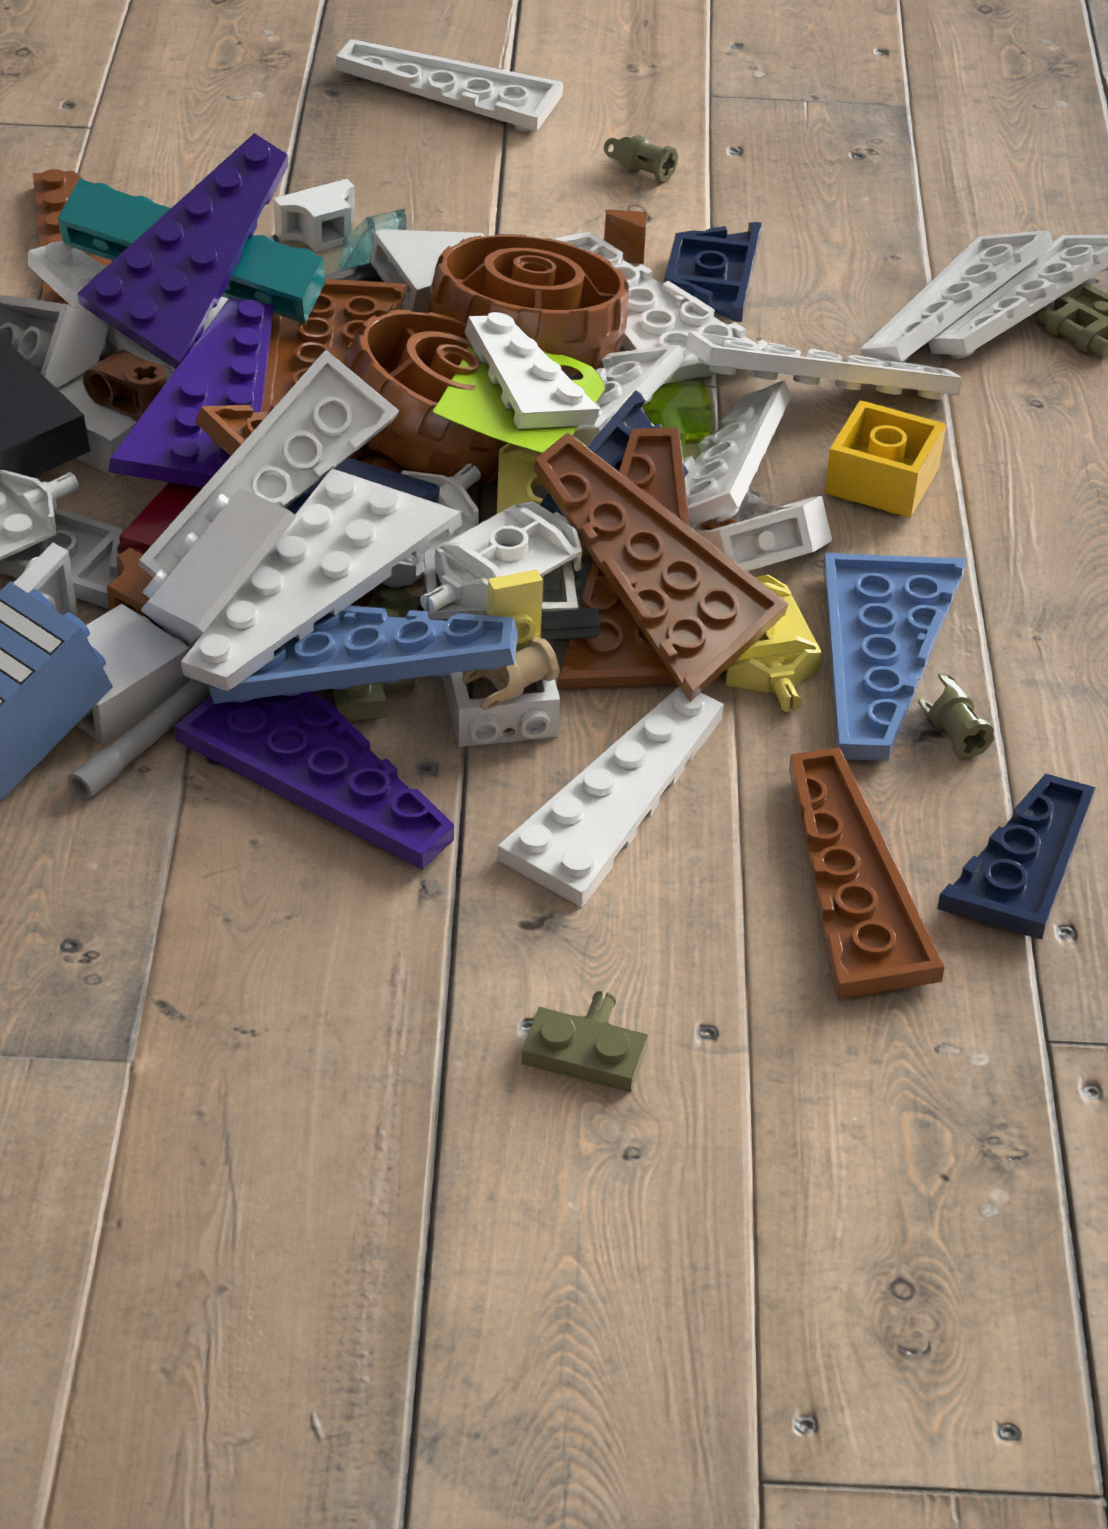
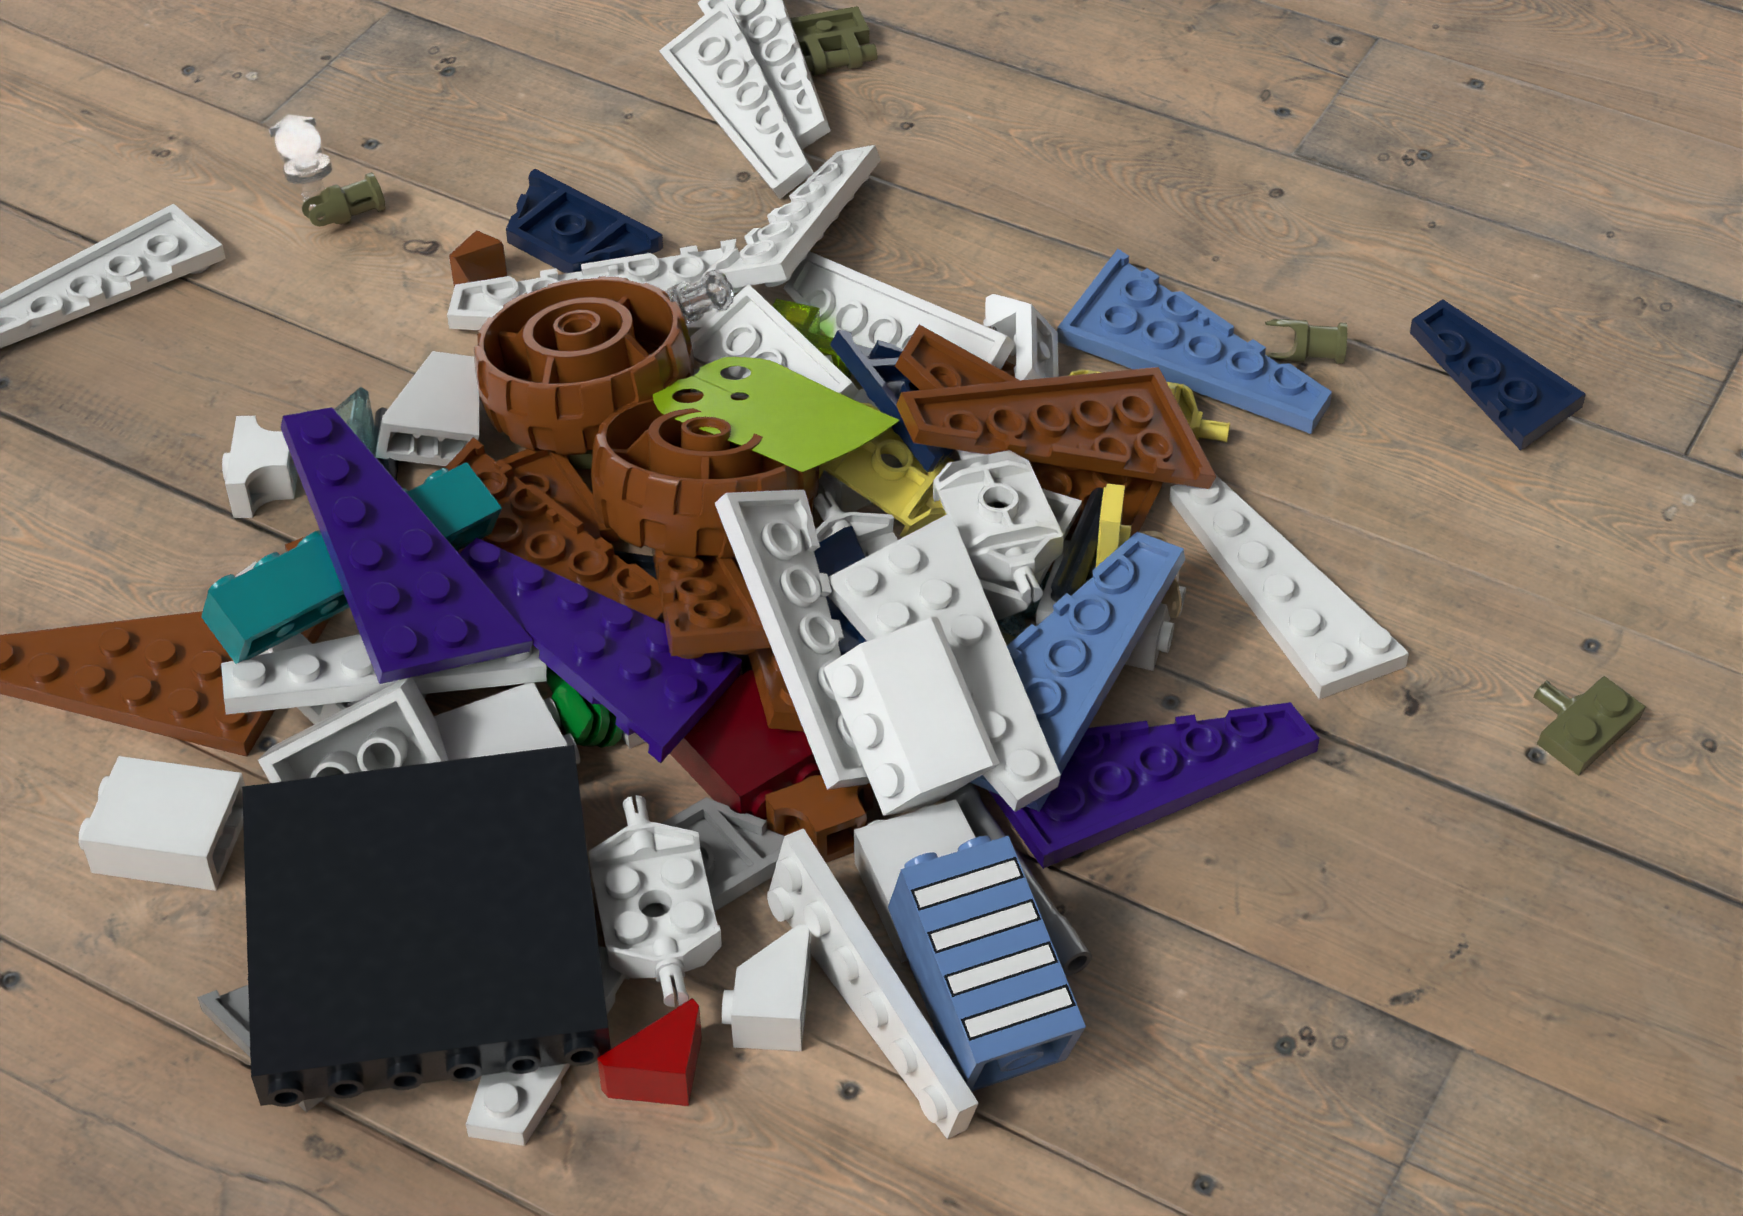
camera: 60 degrees left, 5 degrees up
(124, 383) = (513, 703): reddish brown piece -> none
(529, 378) = (748, 393): white wing -> none
(657, 328) = (702, 295): none -> clear piece
(675, 112) = (301, 149): none -> clear brick
(862, 902) = (1499, 486): dark orange wing -> none
(884, 458) = (959, 236): yellow brick -> none

